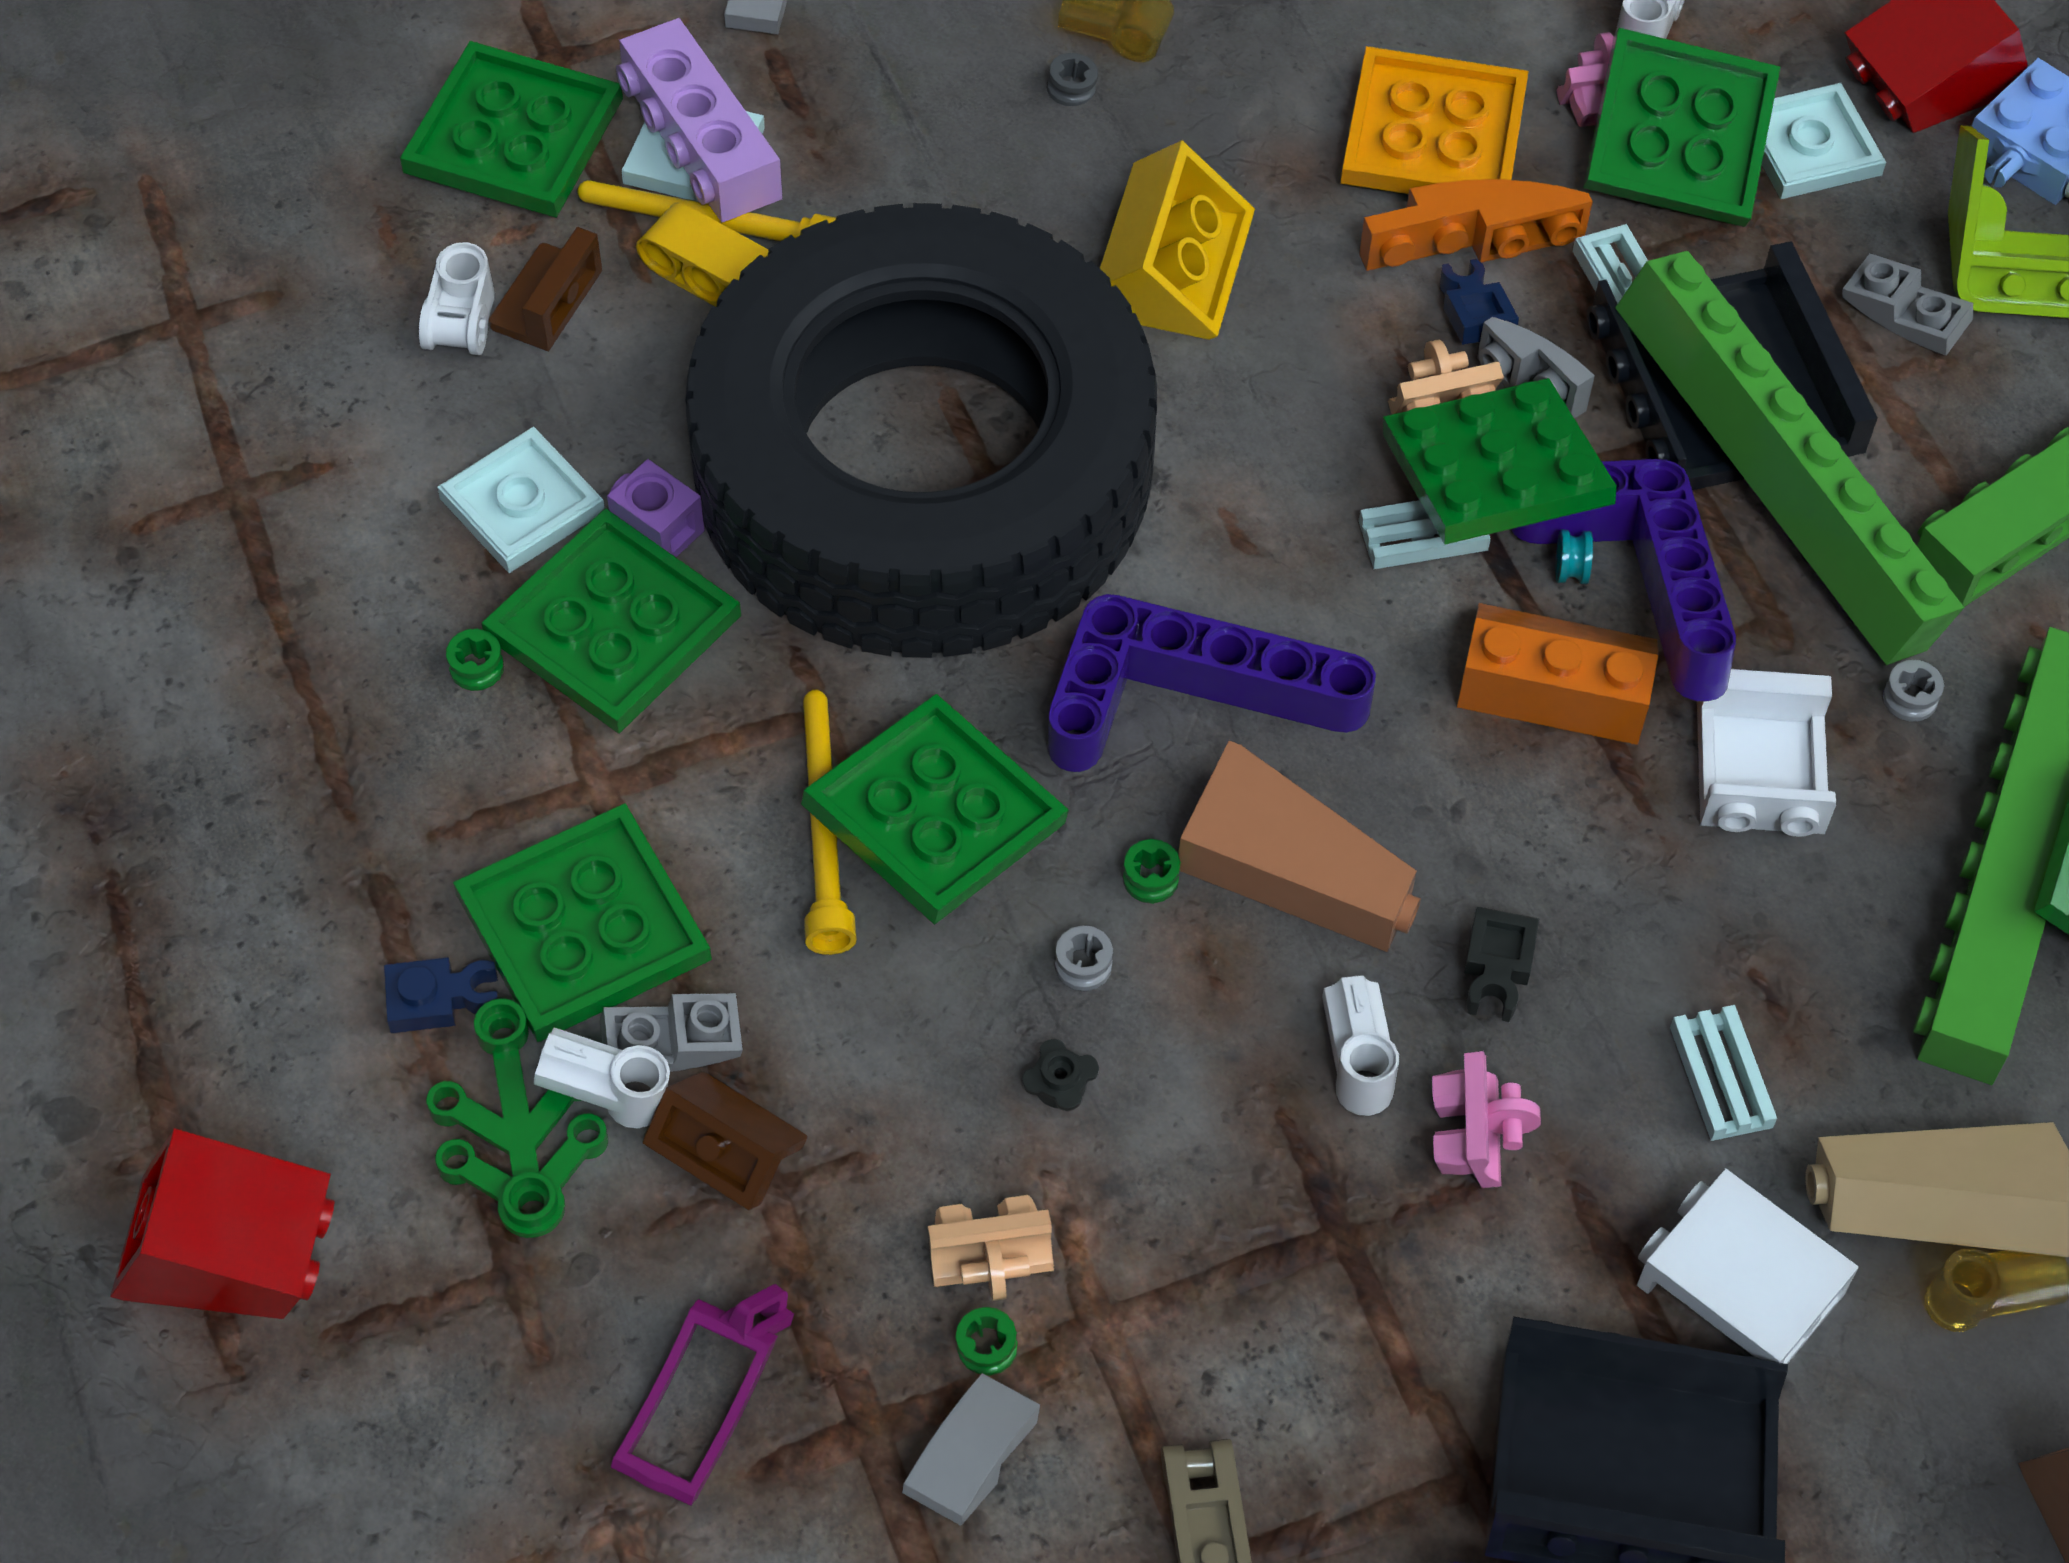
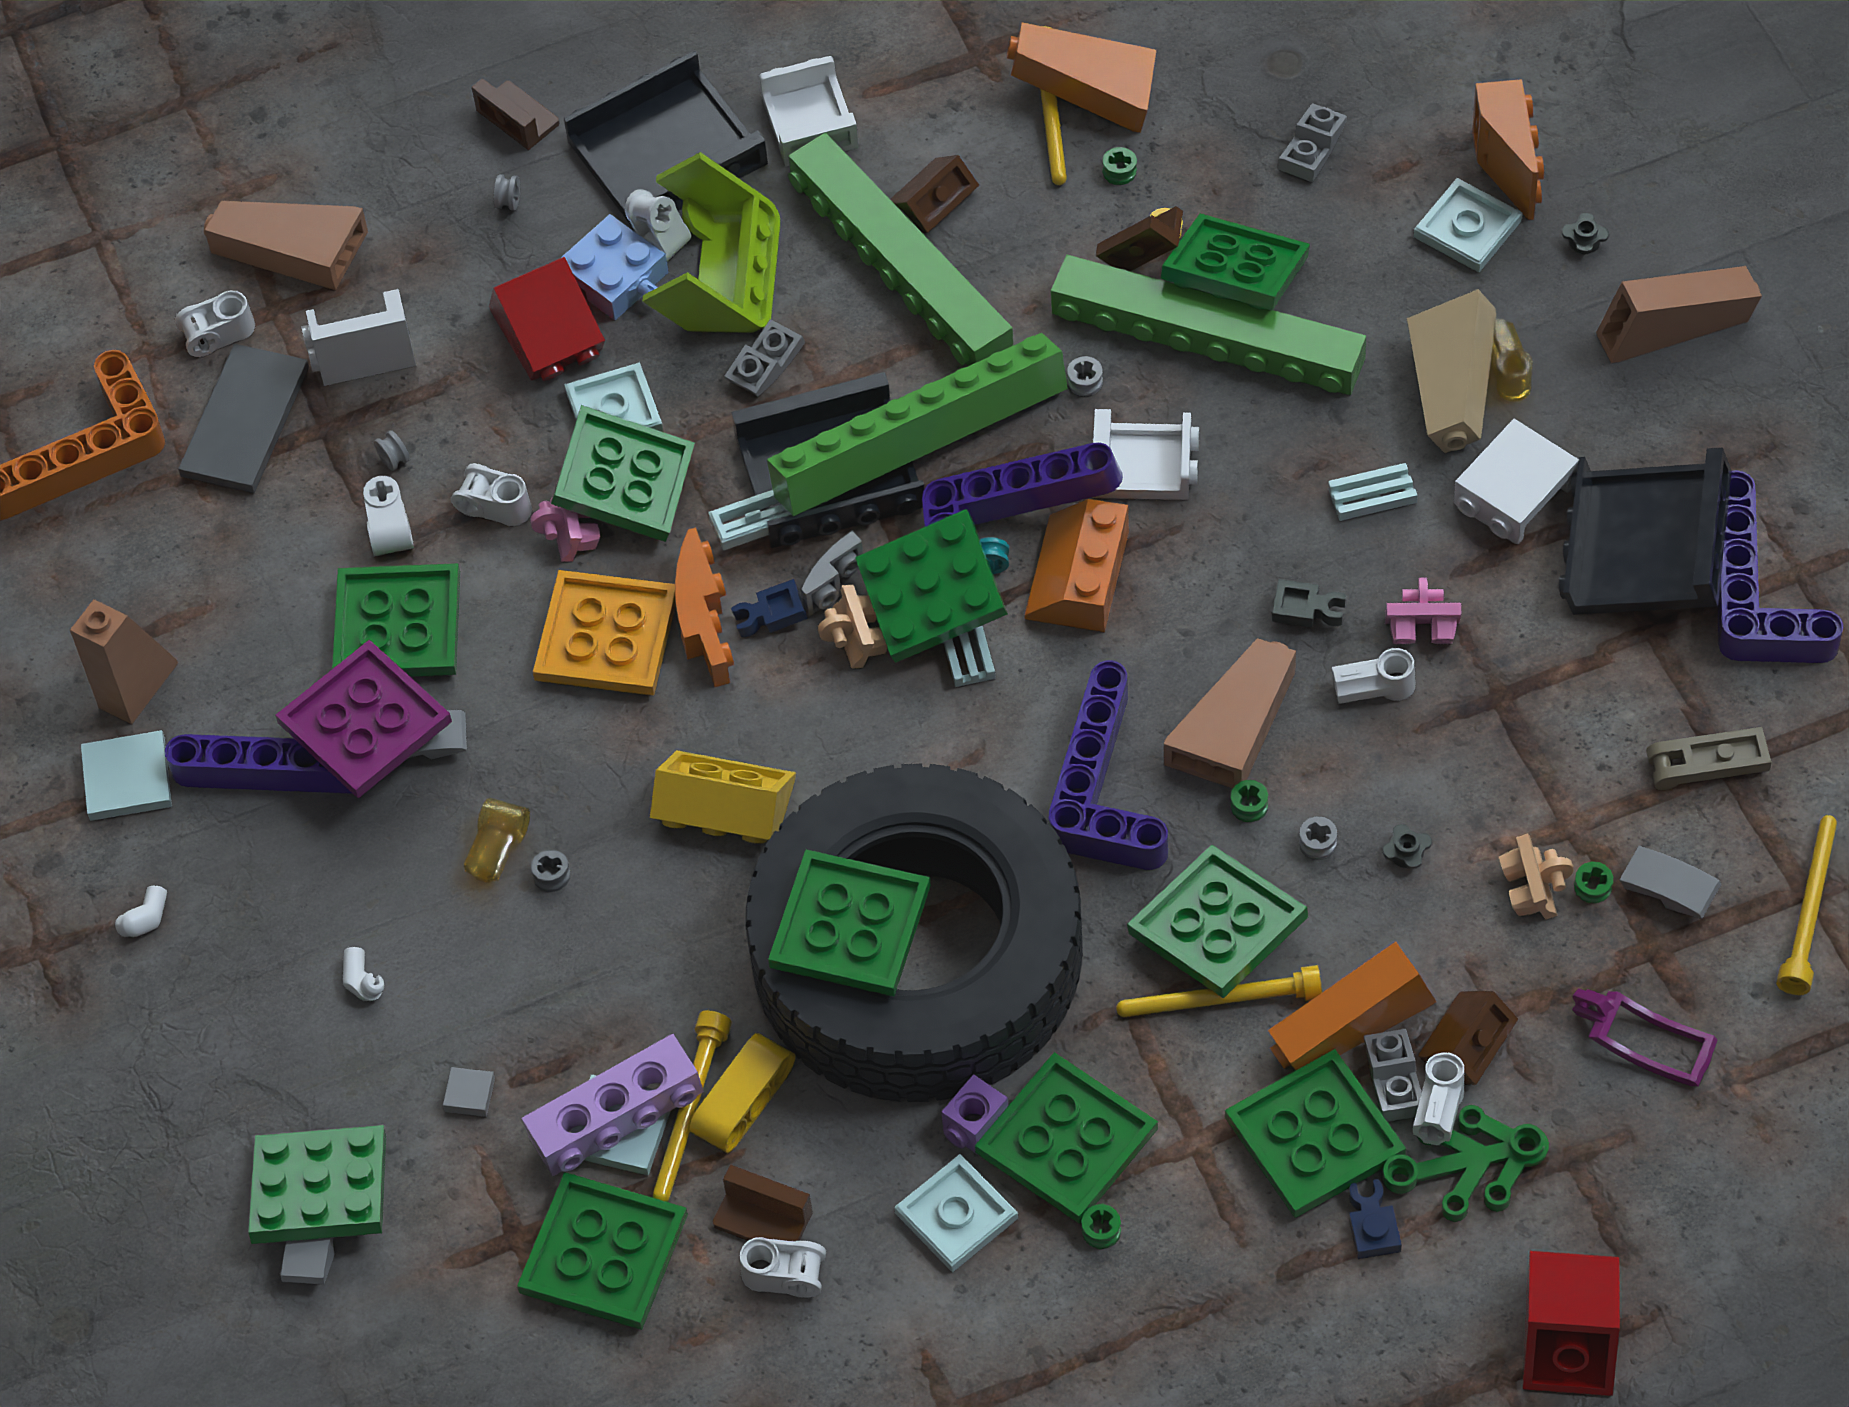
camera: 85 degrees left, 0 degrees up
(772, 978) = (1358, 1005): none -> orange slope
(885, 297) = (849, 922): none -> green plate

